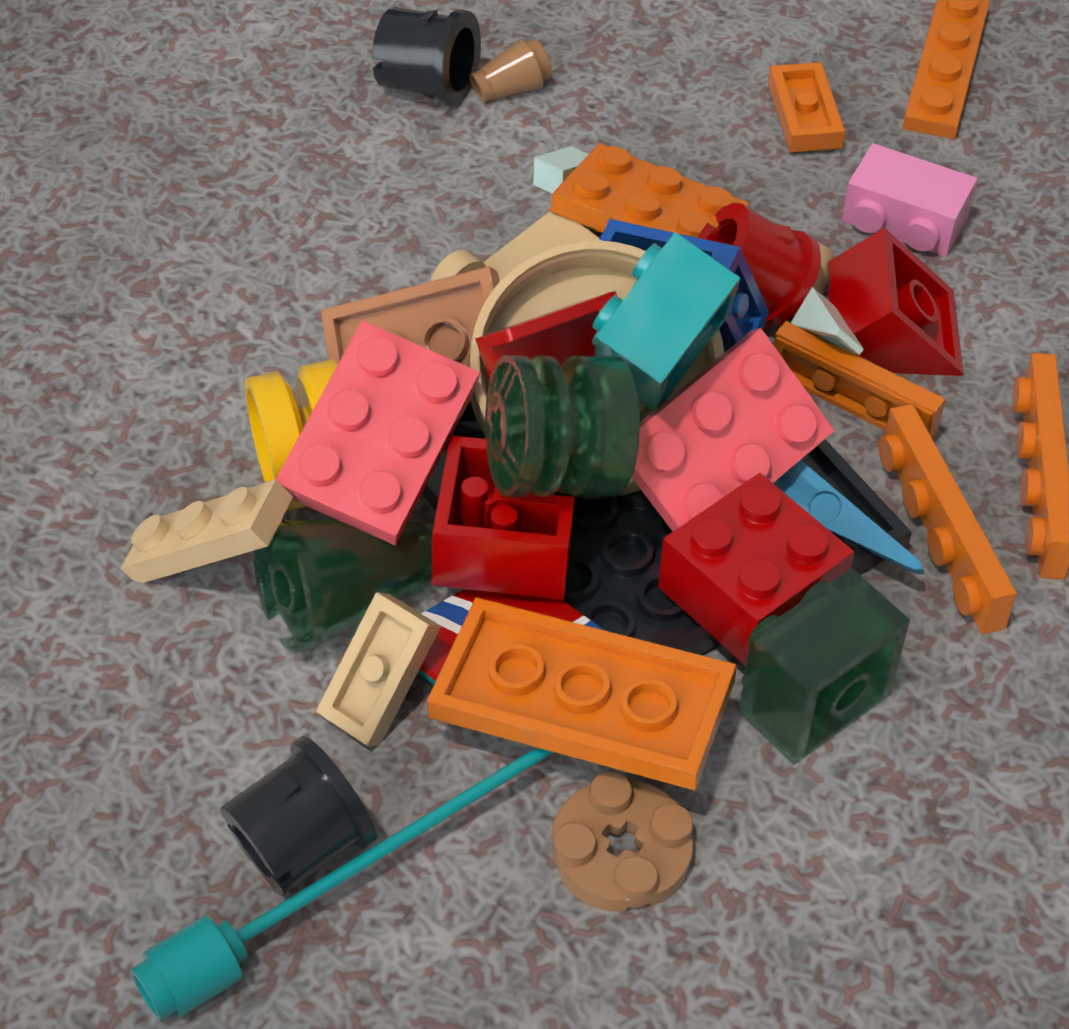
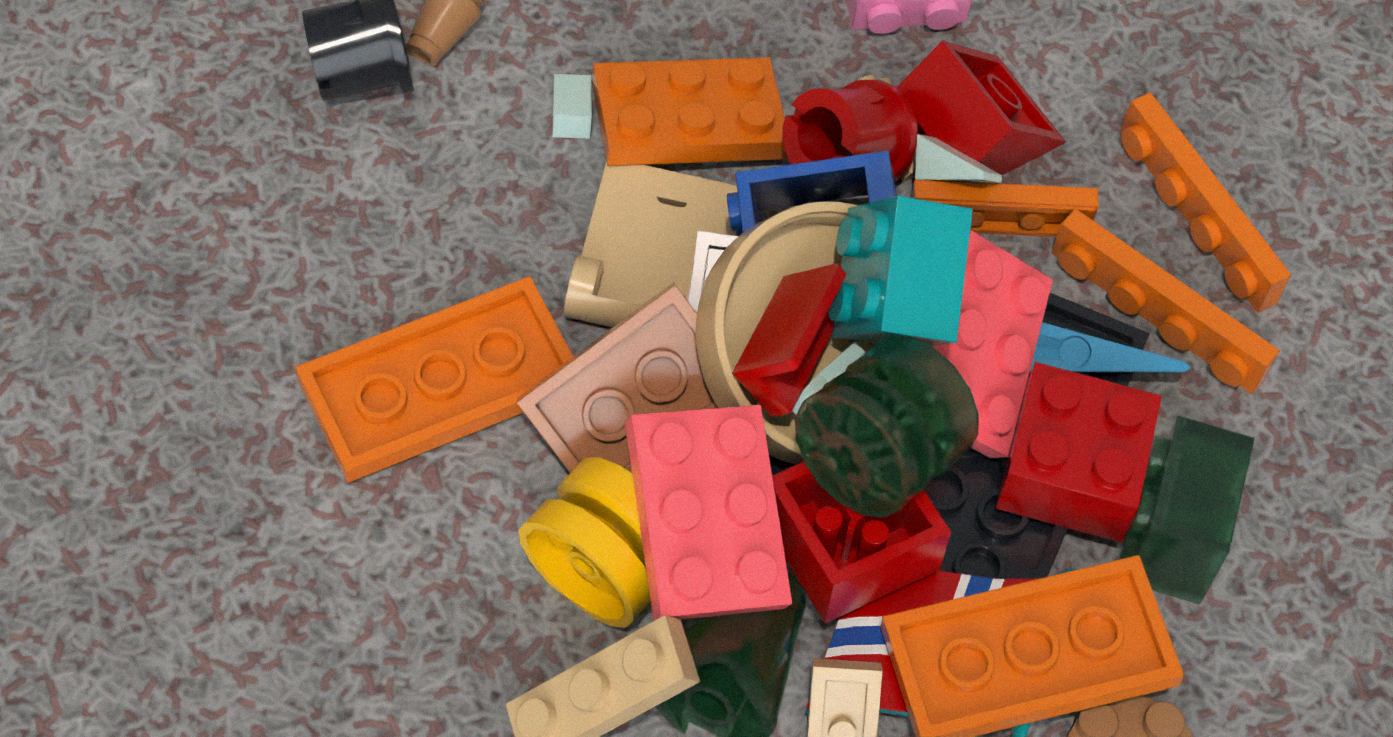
camera: 40 degrees left, 10 degrees up
(281, 281) = (432, 378): none -> orange plate

